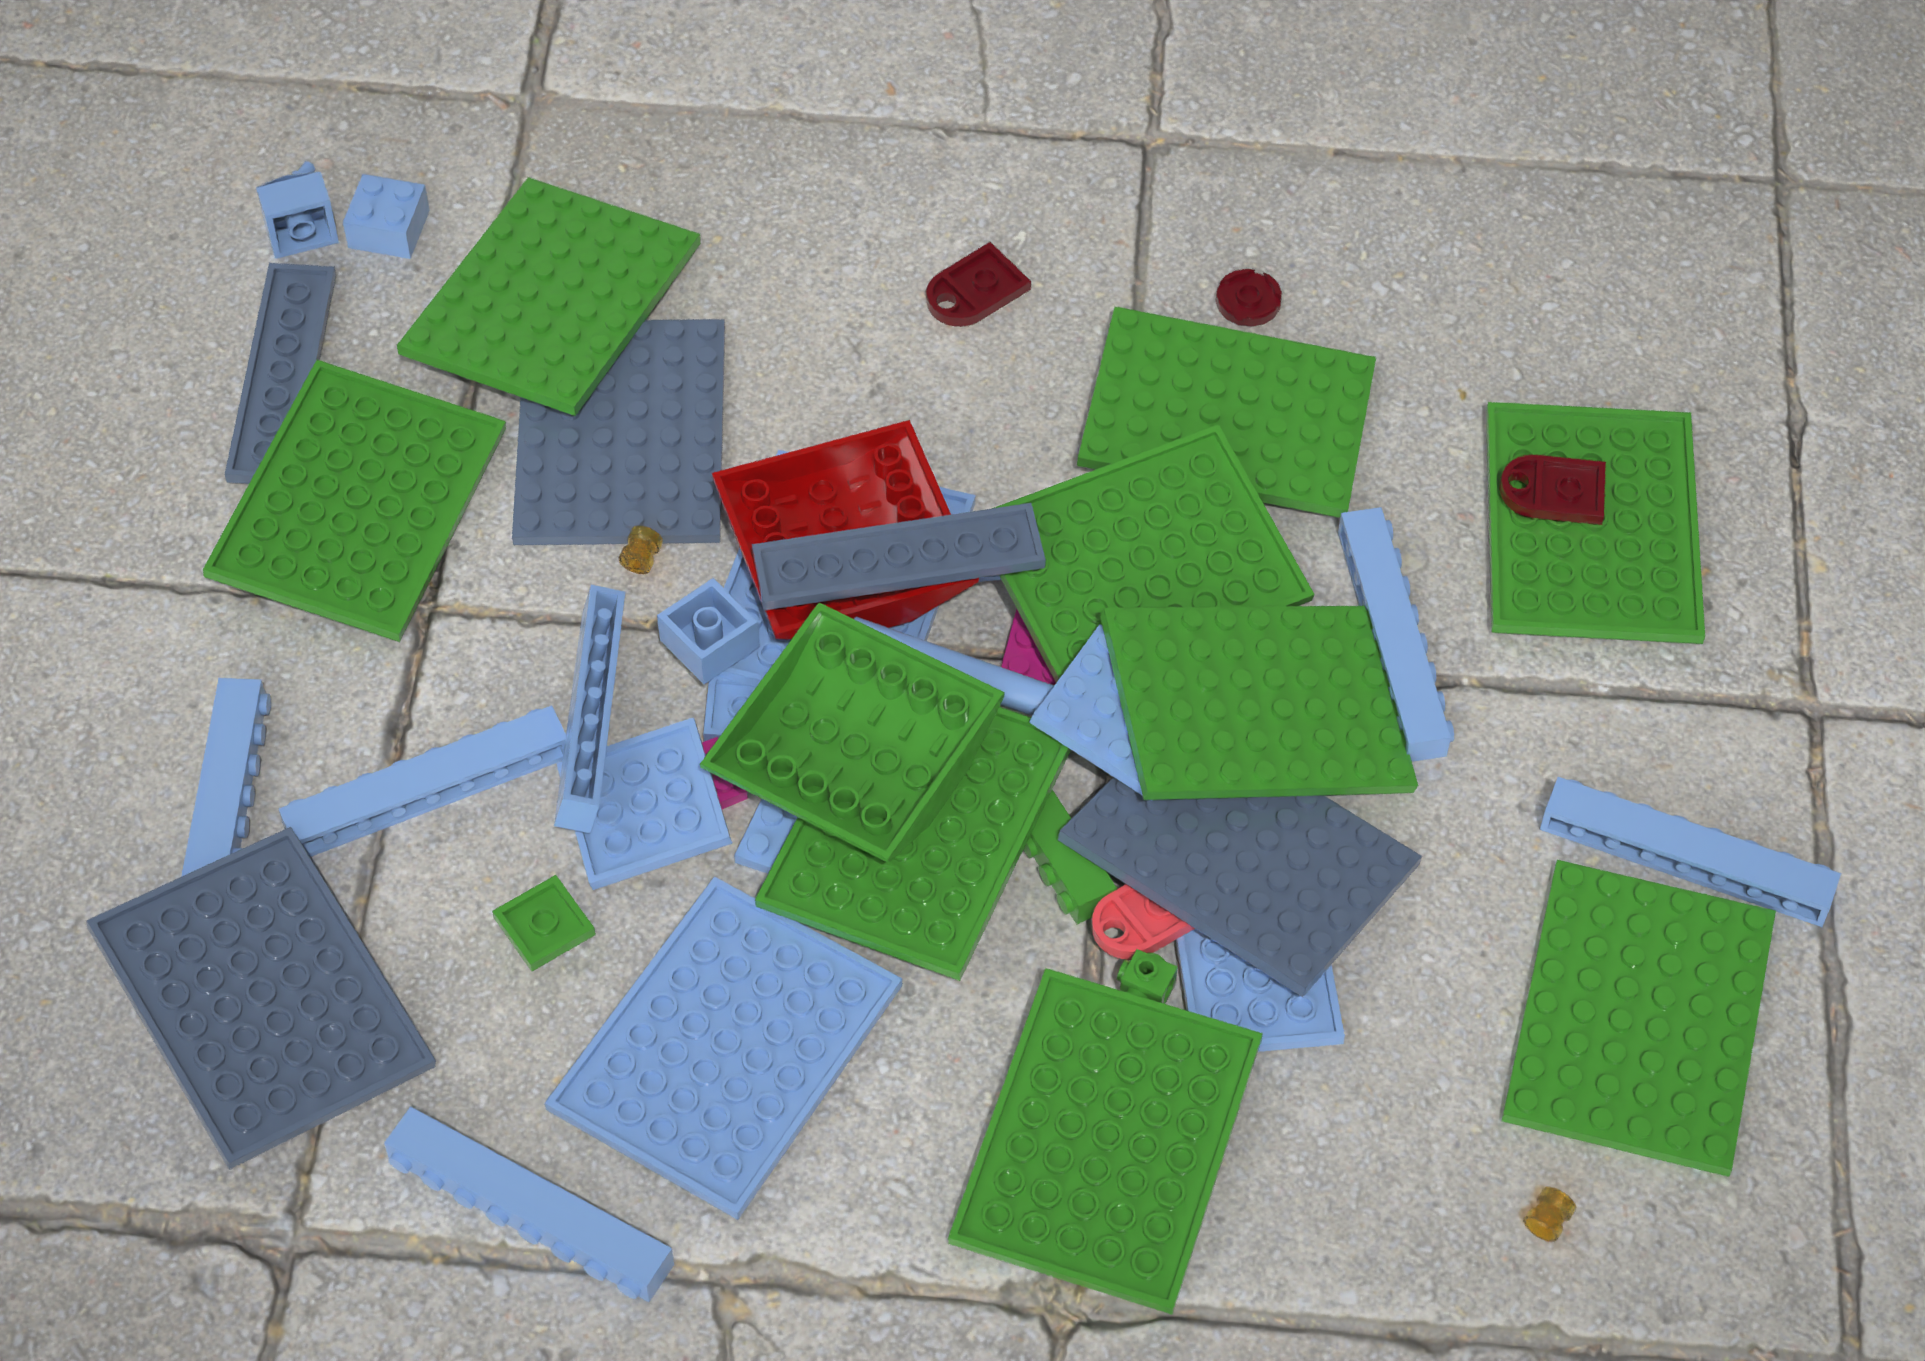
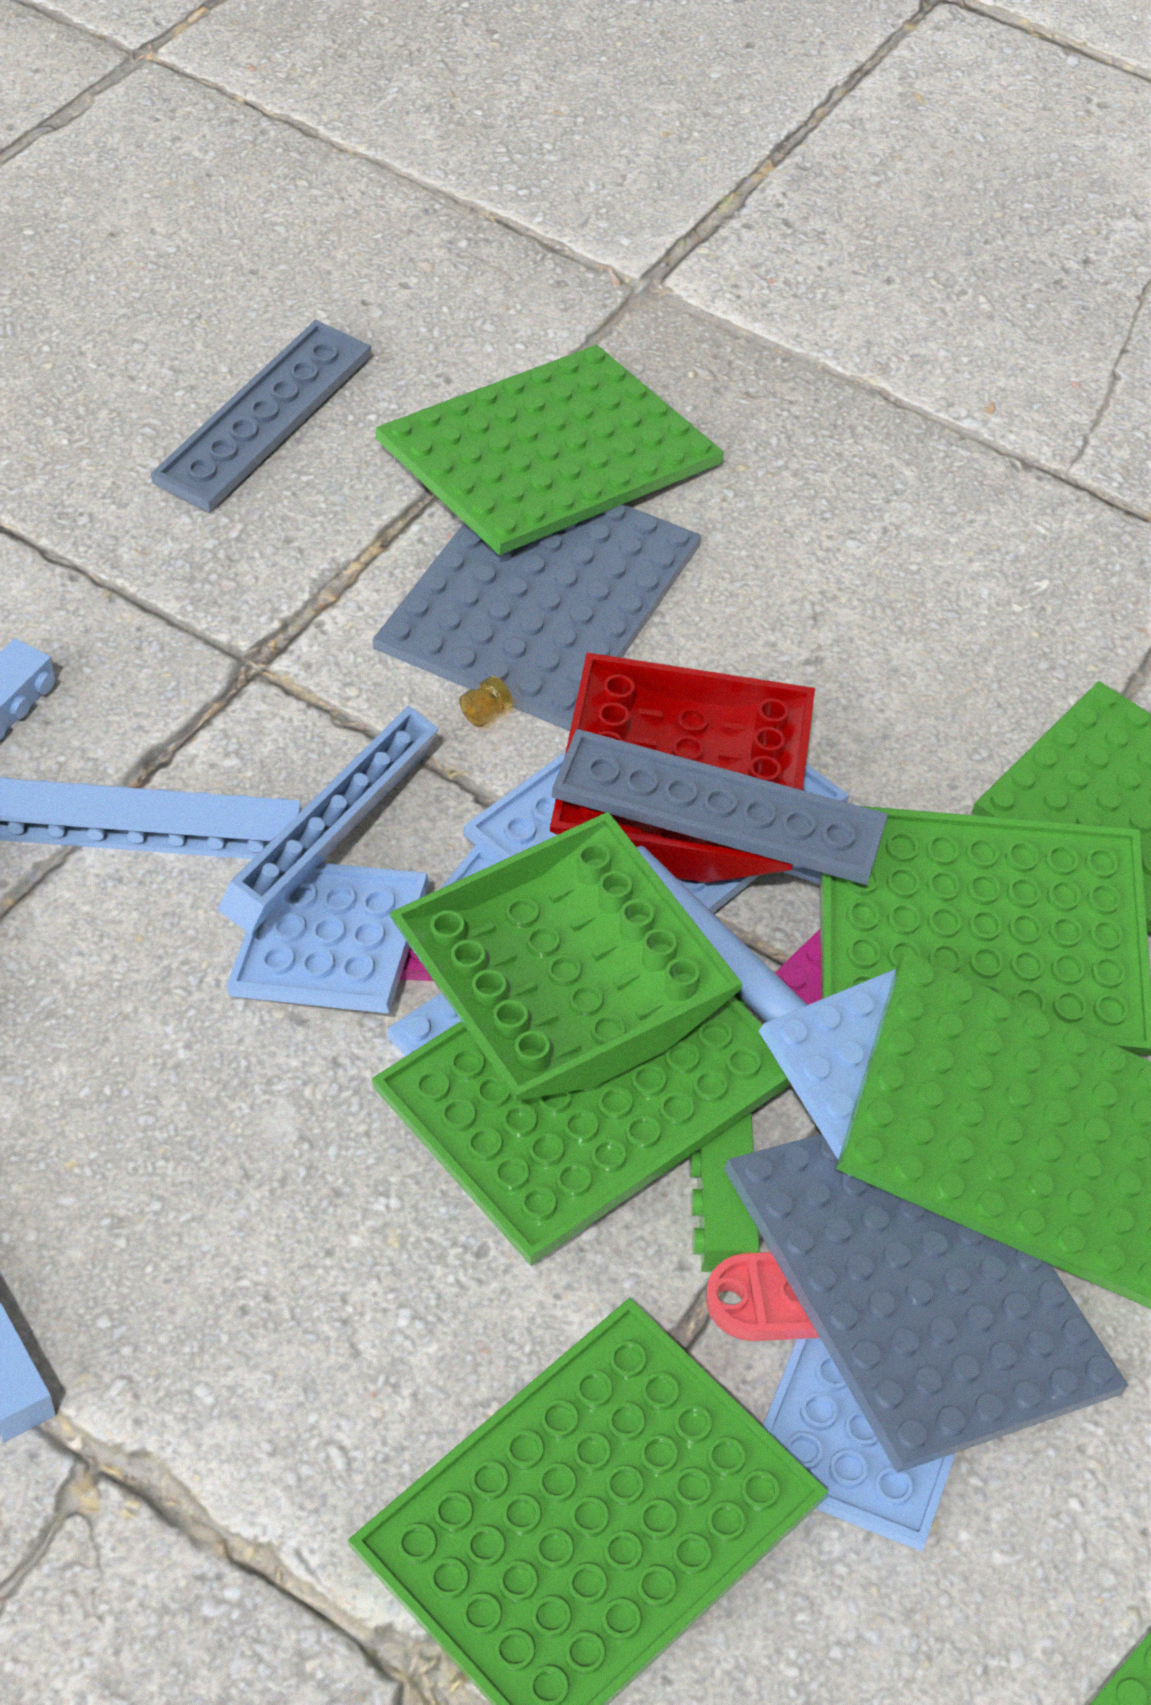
camera: 25 degrees right, 5 degrees down
(297, 212) = (364, 288): light blue piece -> none
(355, 500) = (251, 545): bright green plate -> none
(386, 216) = (445, 324): light blue brick -> none
(543, 923) = (158, 1004): bright green plate -> none
(708, 630) = (492, 797): light blue brick -> none
(724, 1047) = (251, 1217): light blue plate -> none
(976, 287) = (968, 609): dark red tile -> none
(1148, 976) = (738, 1365): bright green brick -> none

